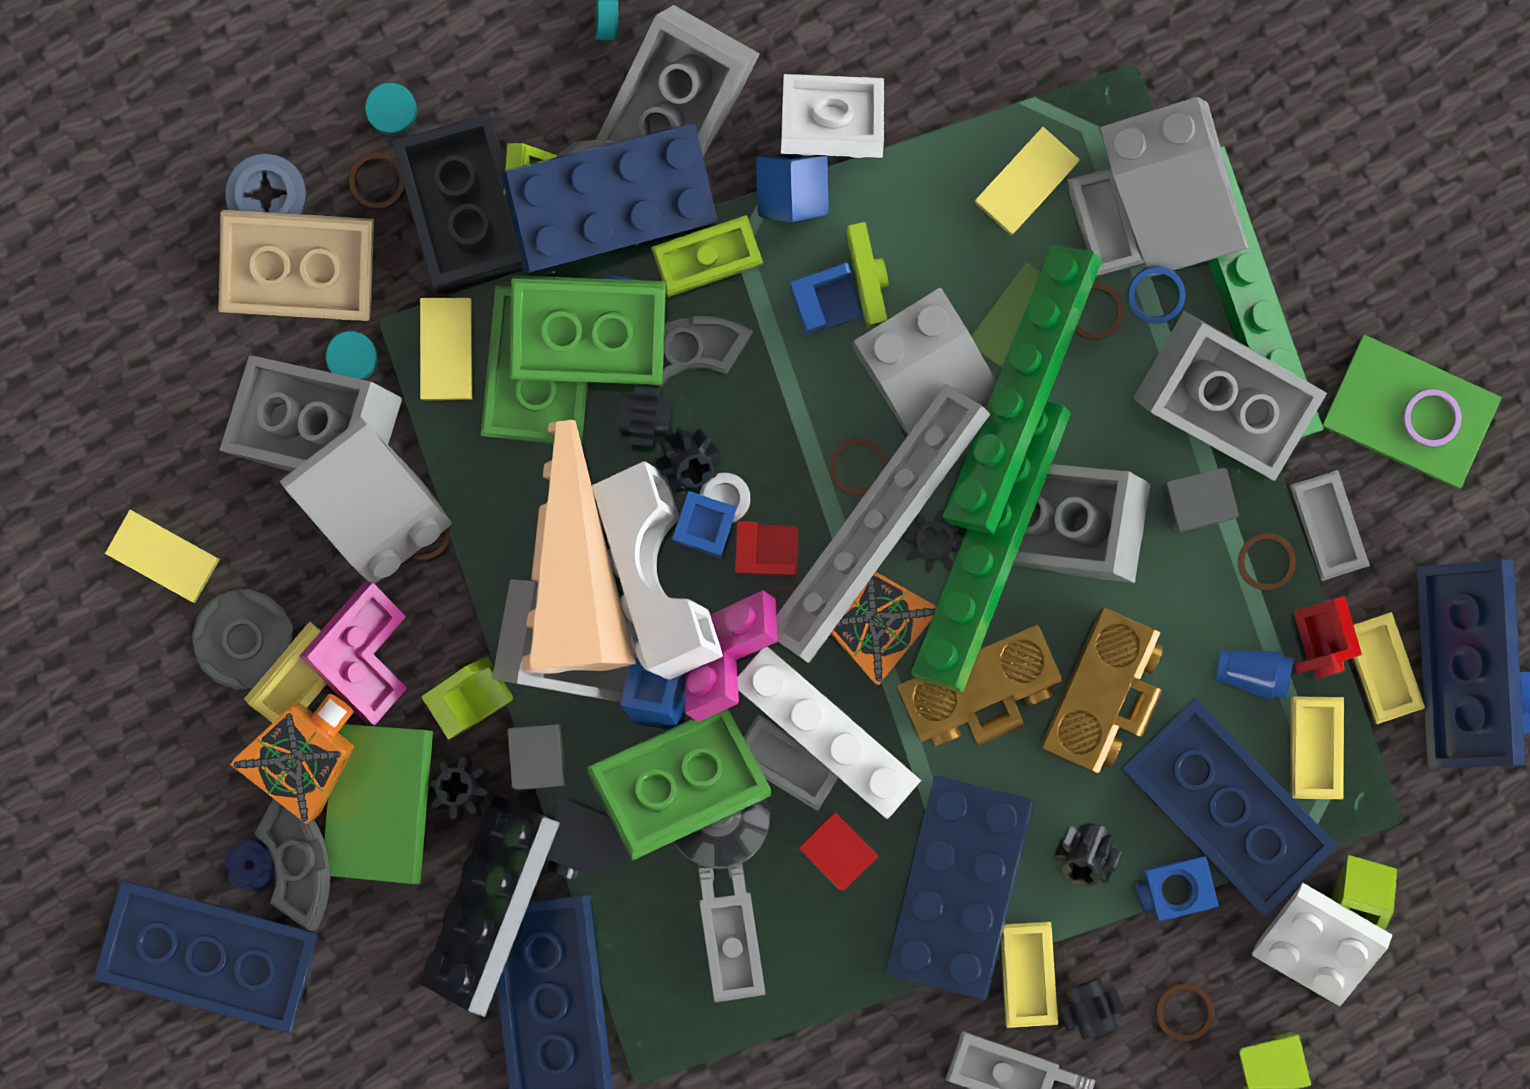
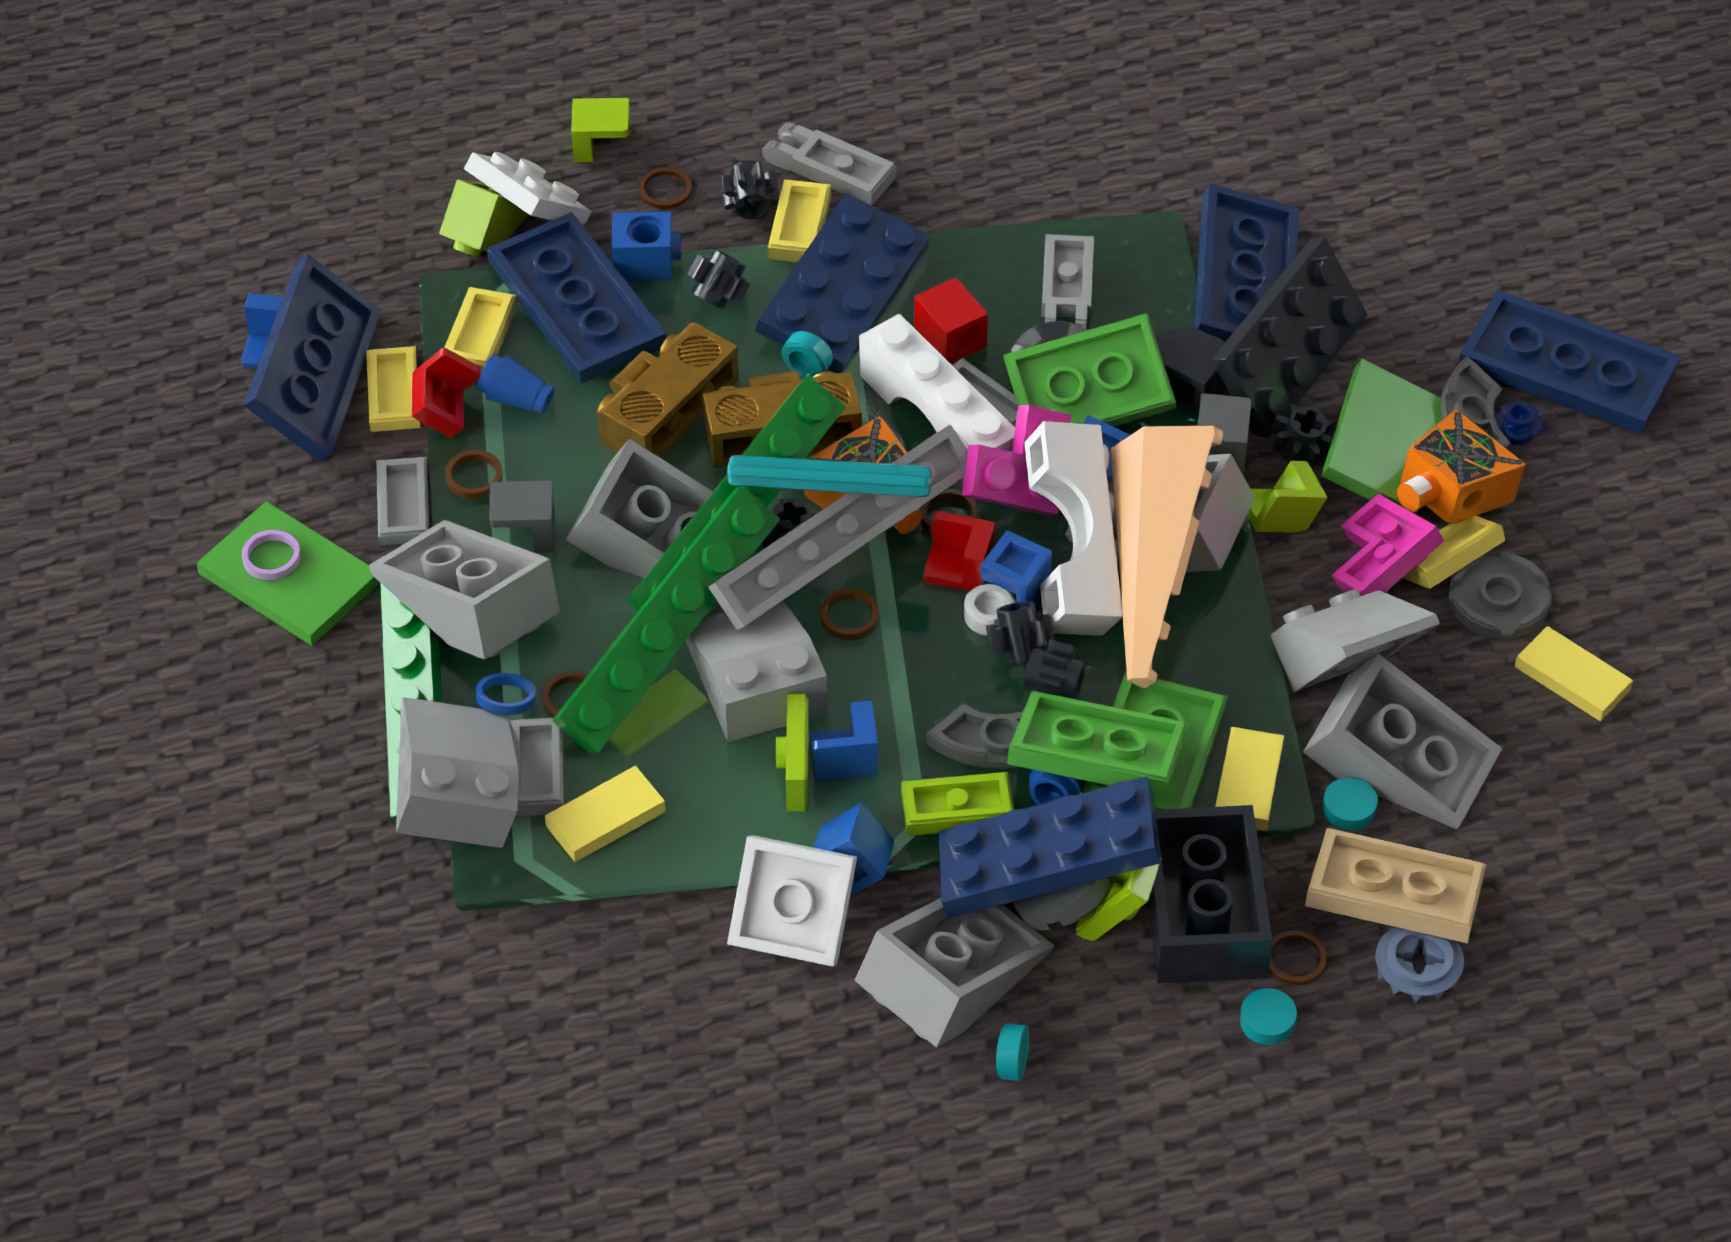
camera: 170 degrees left, 35 degrees down
(901, 551) = (829, 476): none -> teal axle
(974, 772) = (806, 354): none -> teal tile

